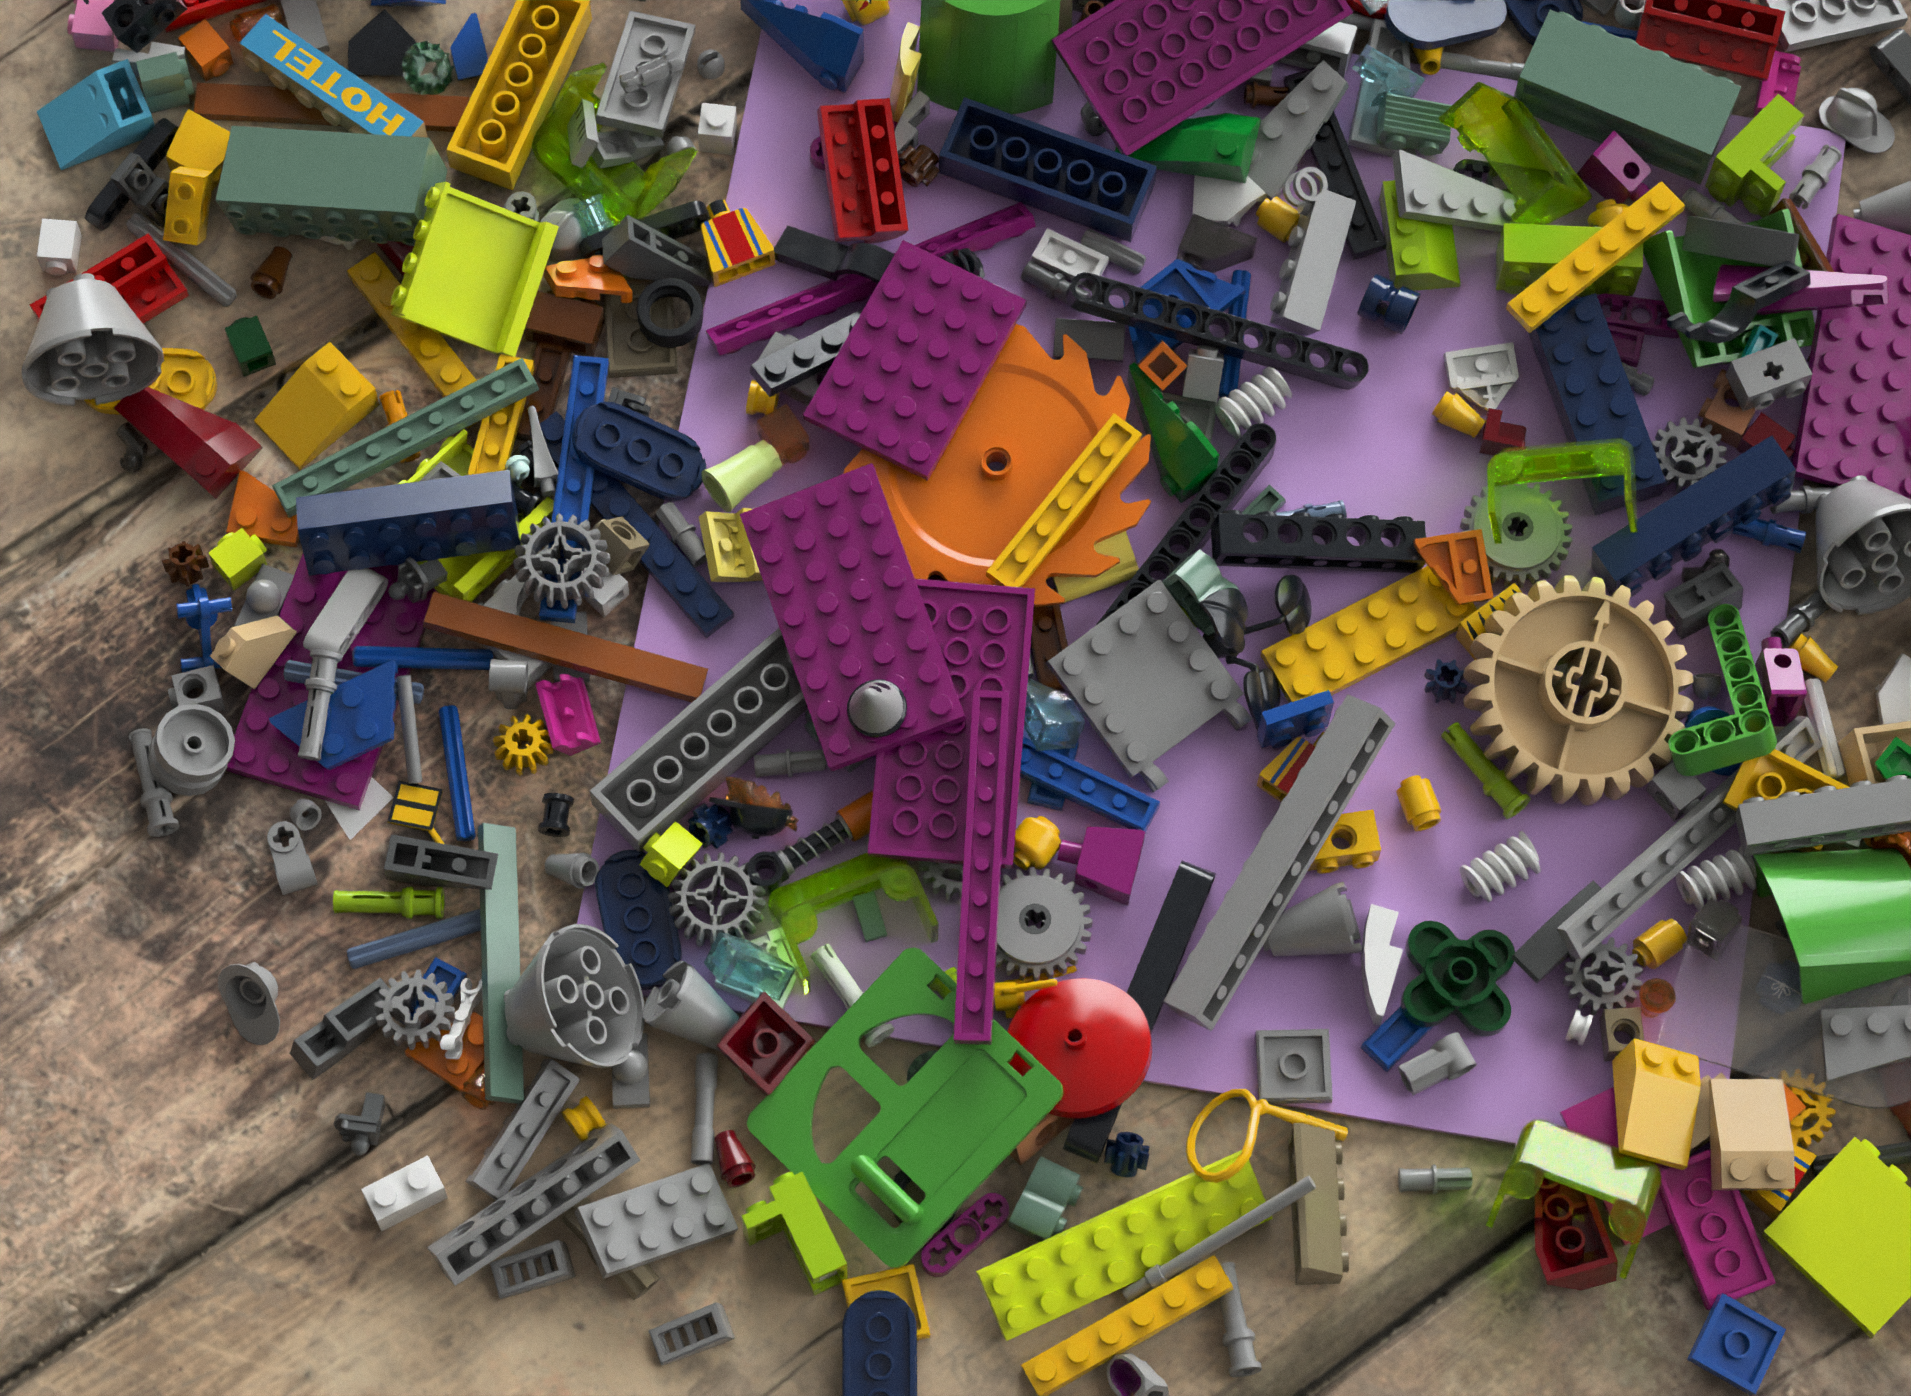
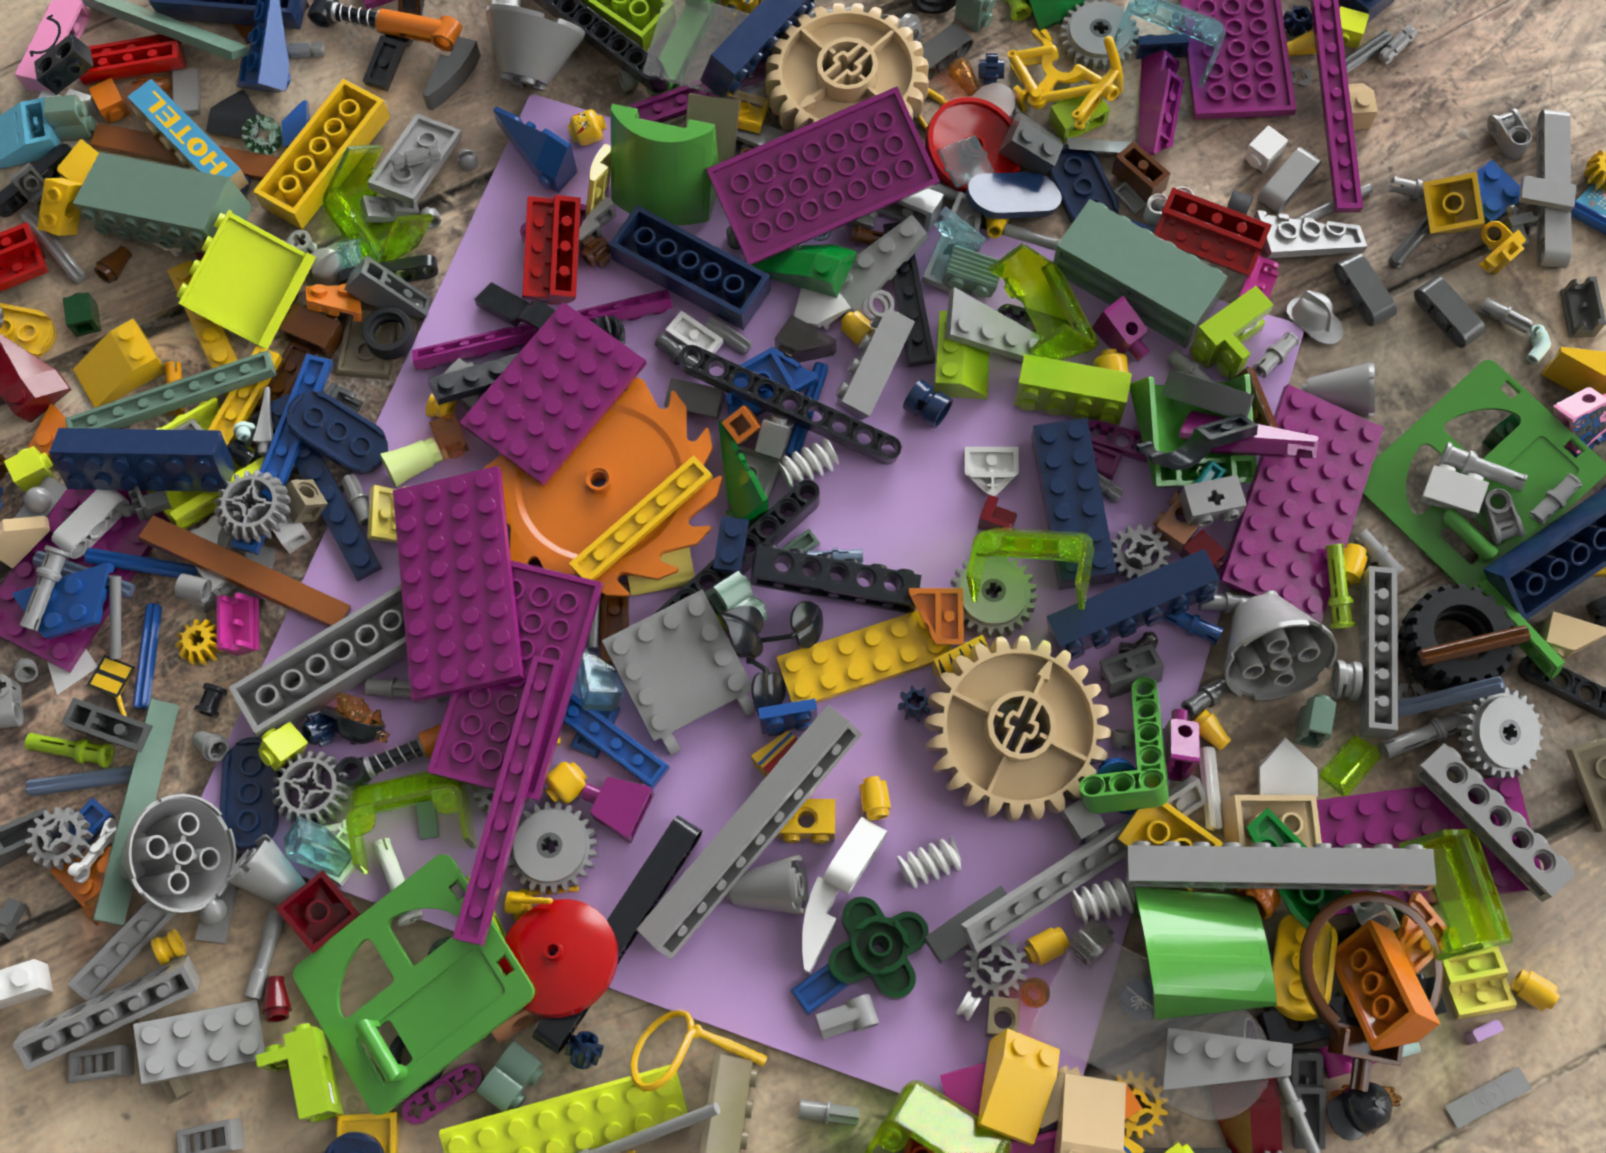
camera: 15 degrees right, 0 degrees up
(582, 133) = (356, 194): light grey tile -> none
(717, 128) = (458, 205): white brick -> none
(734, 244) = (446, 290): torso -> none
(877, 708) = (454, 658): light grey hat -> none
(1180, 519) = (731, 545): none -> dark blue plate
(1294, 1066) = (732, 998): light grey tile -> none
(1410, 872) = (855, 855): none -> white beam
(1457, 414) = (965, 496): yellow cone -> none
(1494, 780) = (937, 788): lime pin -> none
(1595, 257) = (1090, 389): yellow plate -> none

